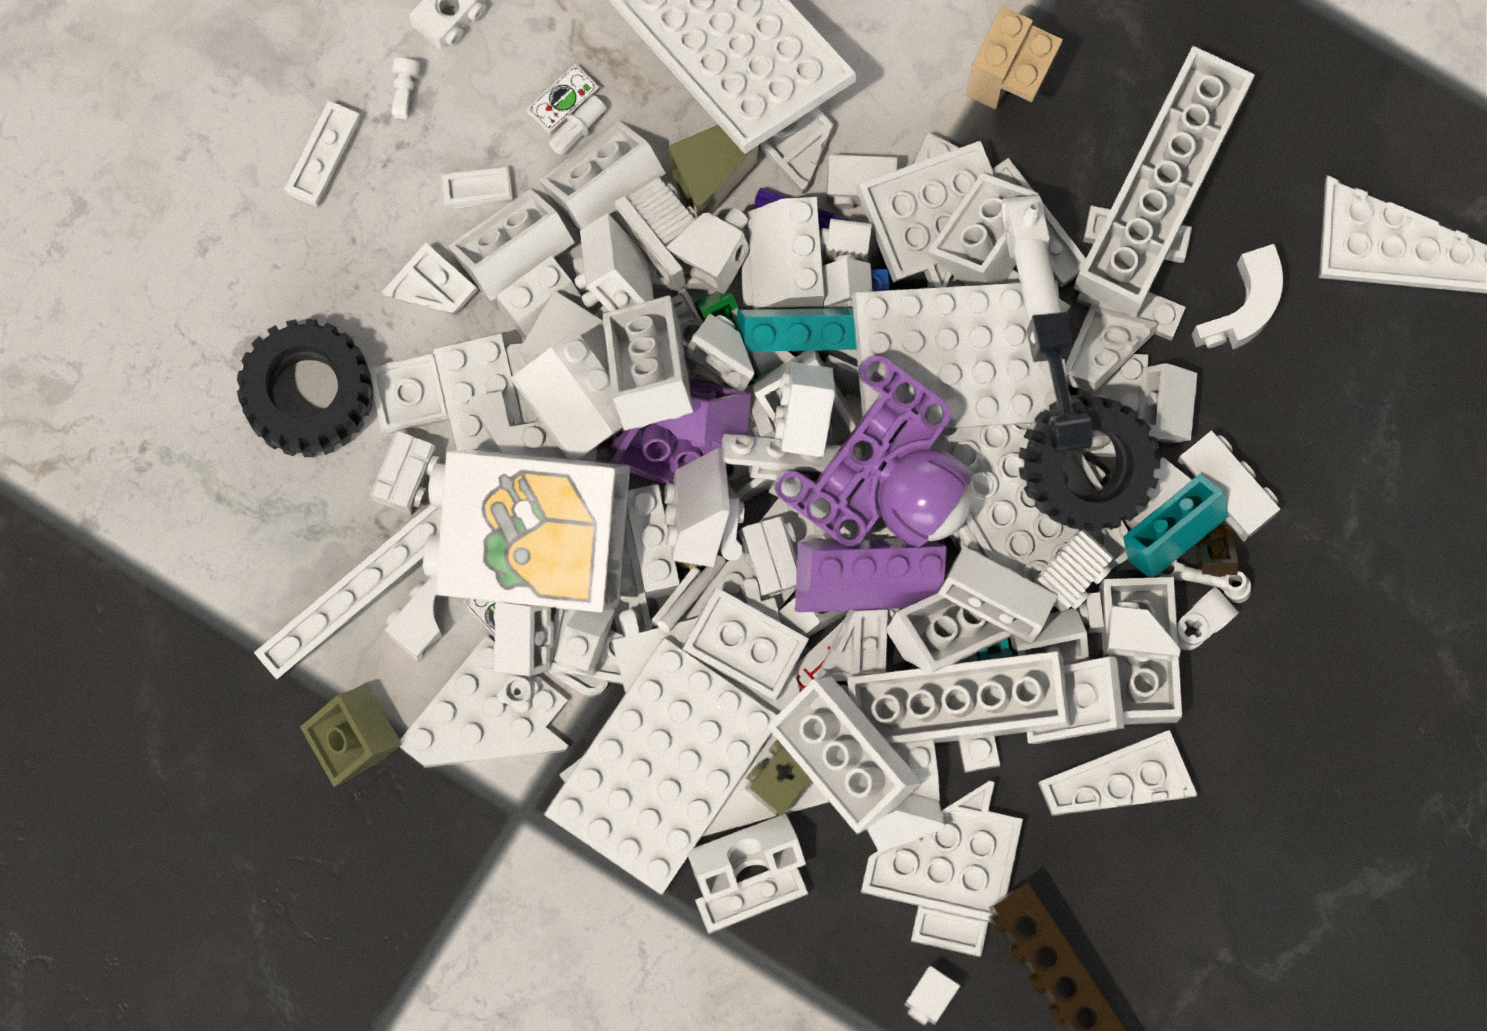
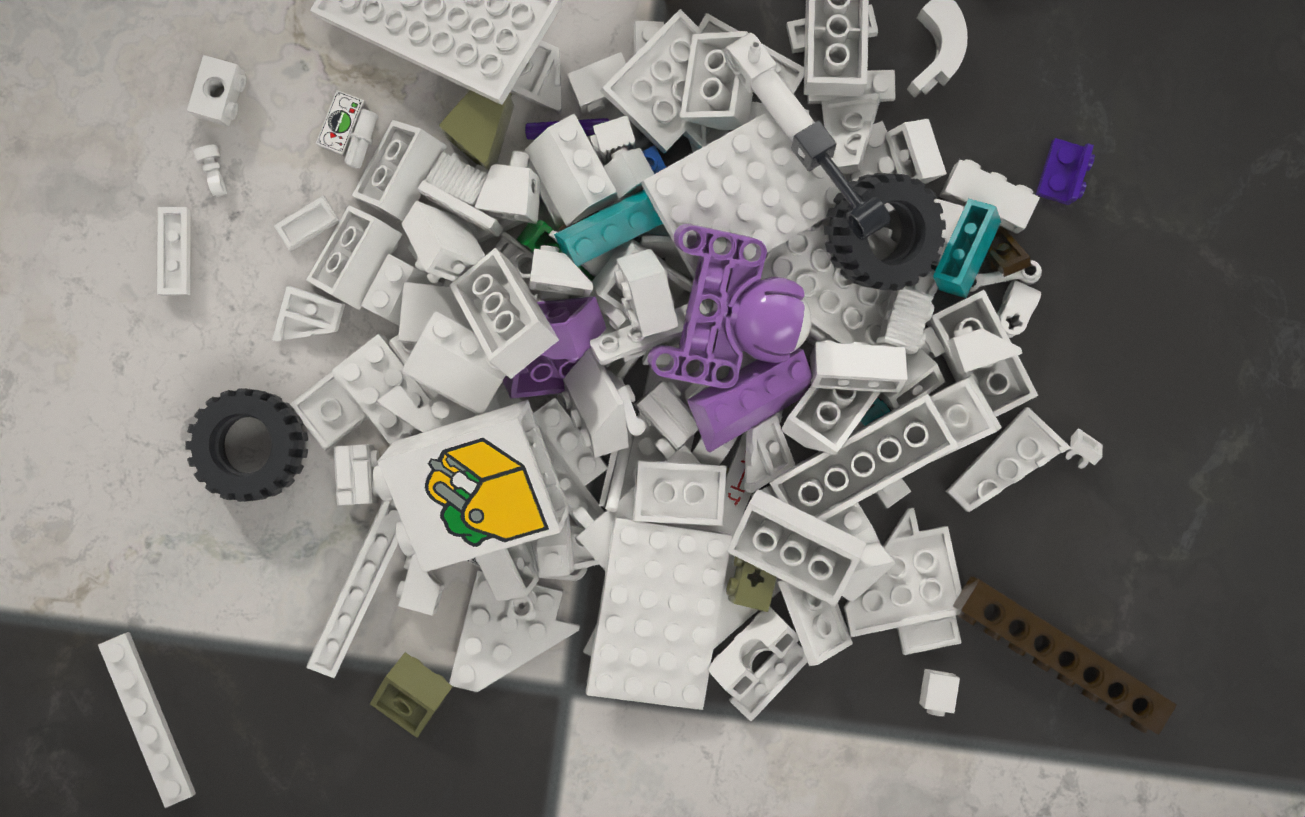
camera: 20 degrees left, 10 degrees up
(52, 633) = (147, 719): none -> white plate
(830, 852) = (816, 623): none -> white plate
(1214, 802) = (1086, 447): none -> white tile
(1323, 496) = (1065, 171): none -> dark purple bracket

